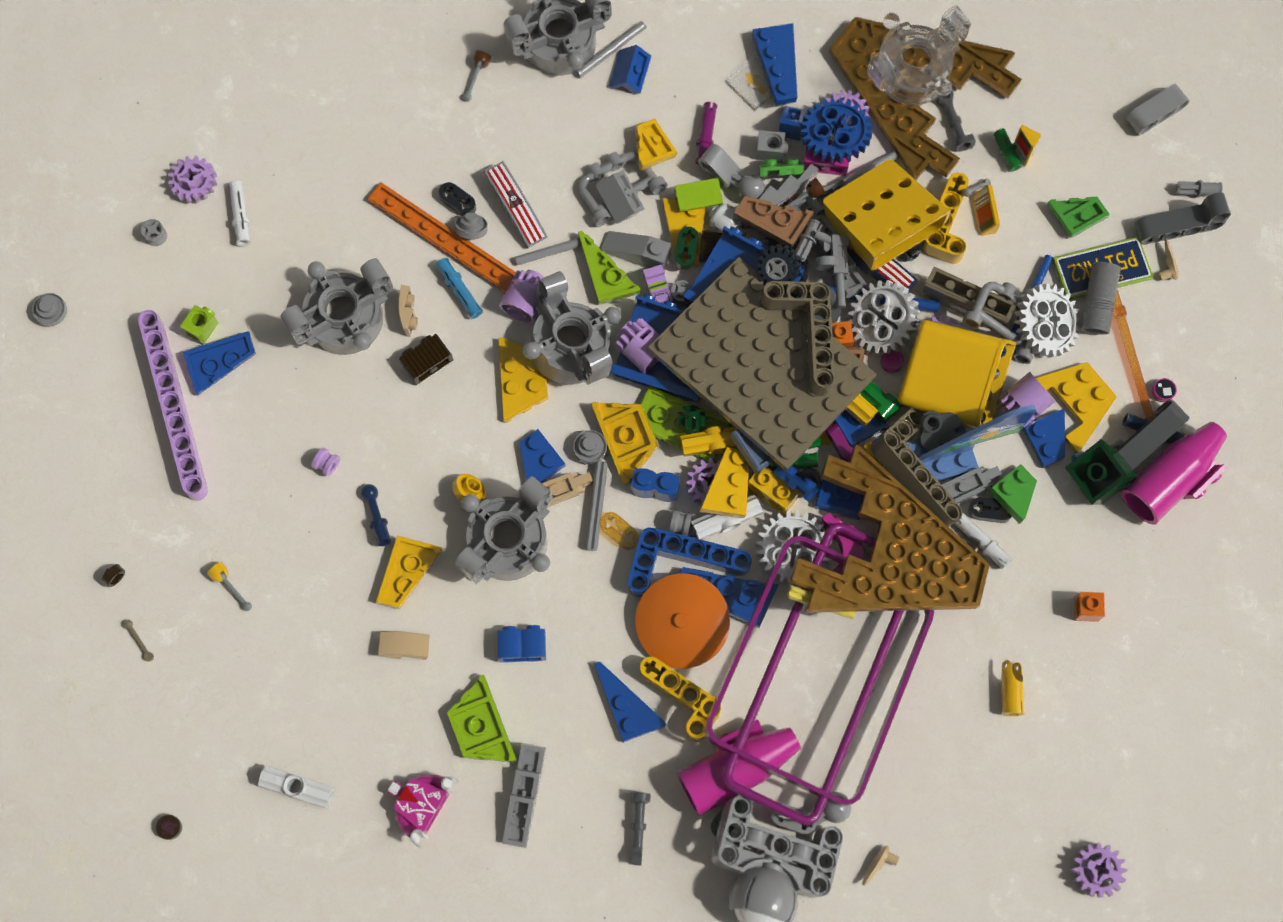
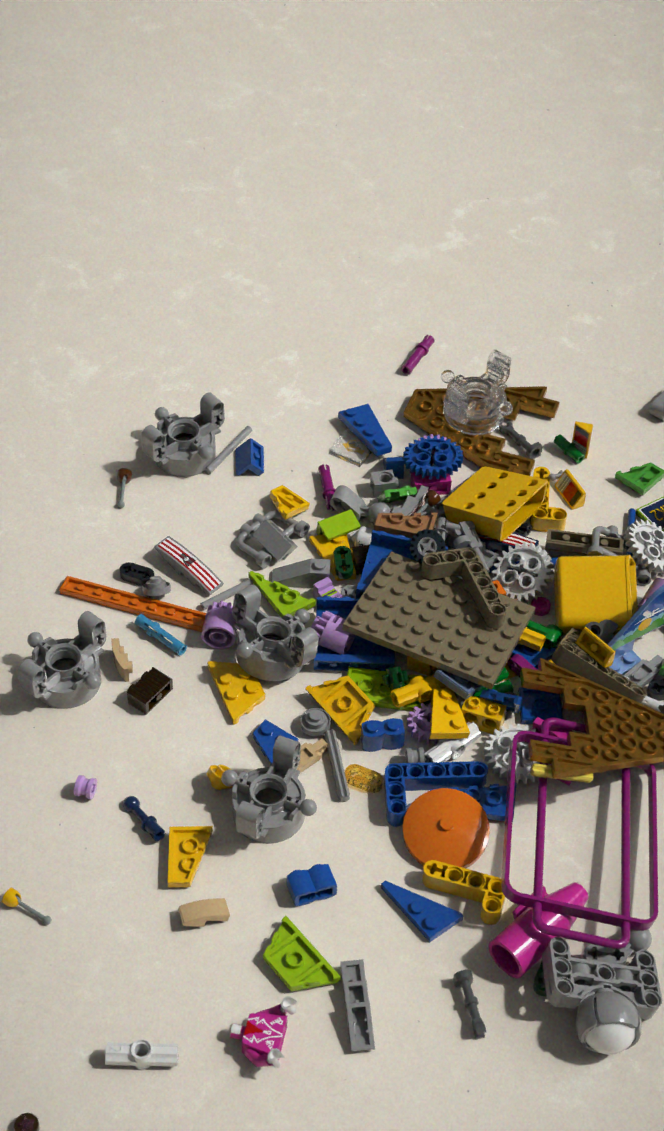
camera: 20 degrees left, 25 degrees down
(922, 449) = (596, 648): none -> yellow slope

